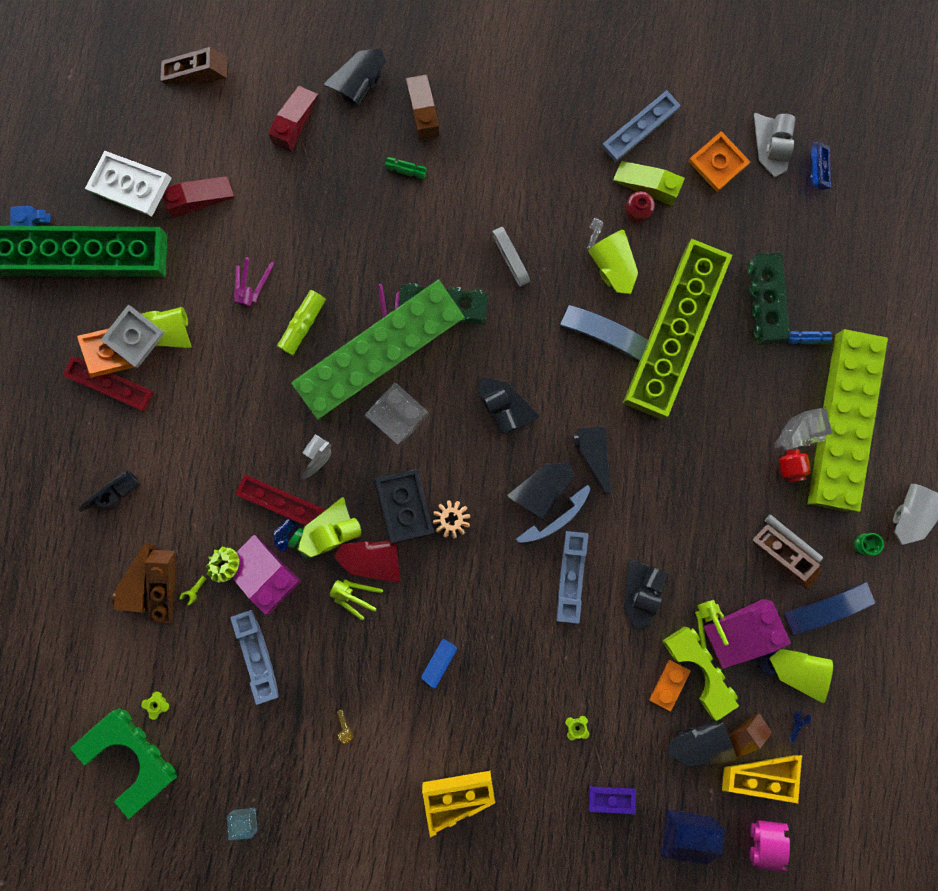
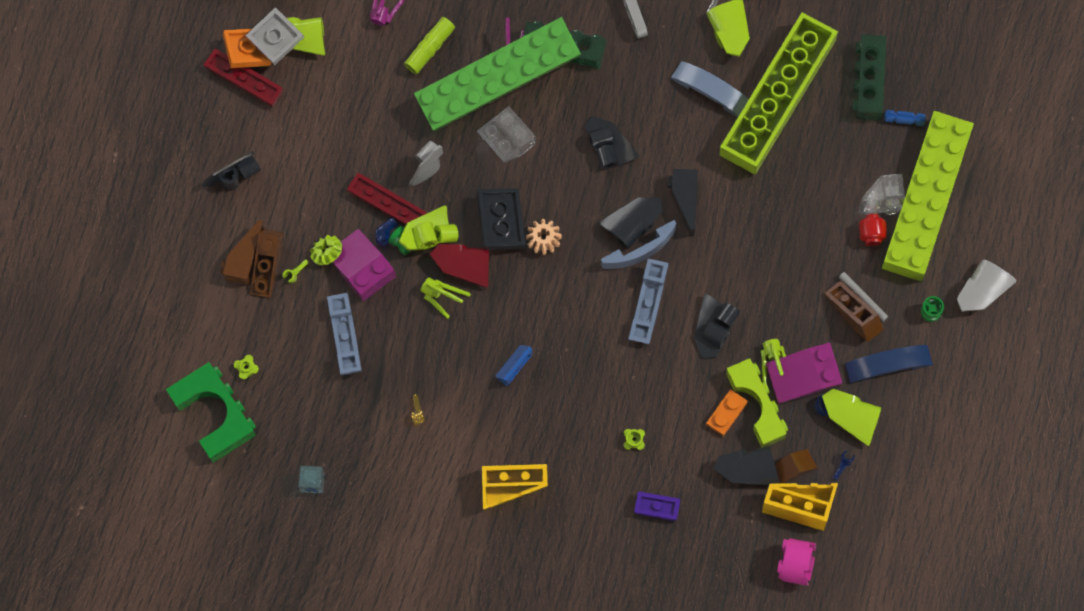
camera: 15 degrees right, 10 degrees down
(692, 837) = (724, 546): clear blue slope -> none

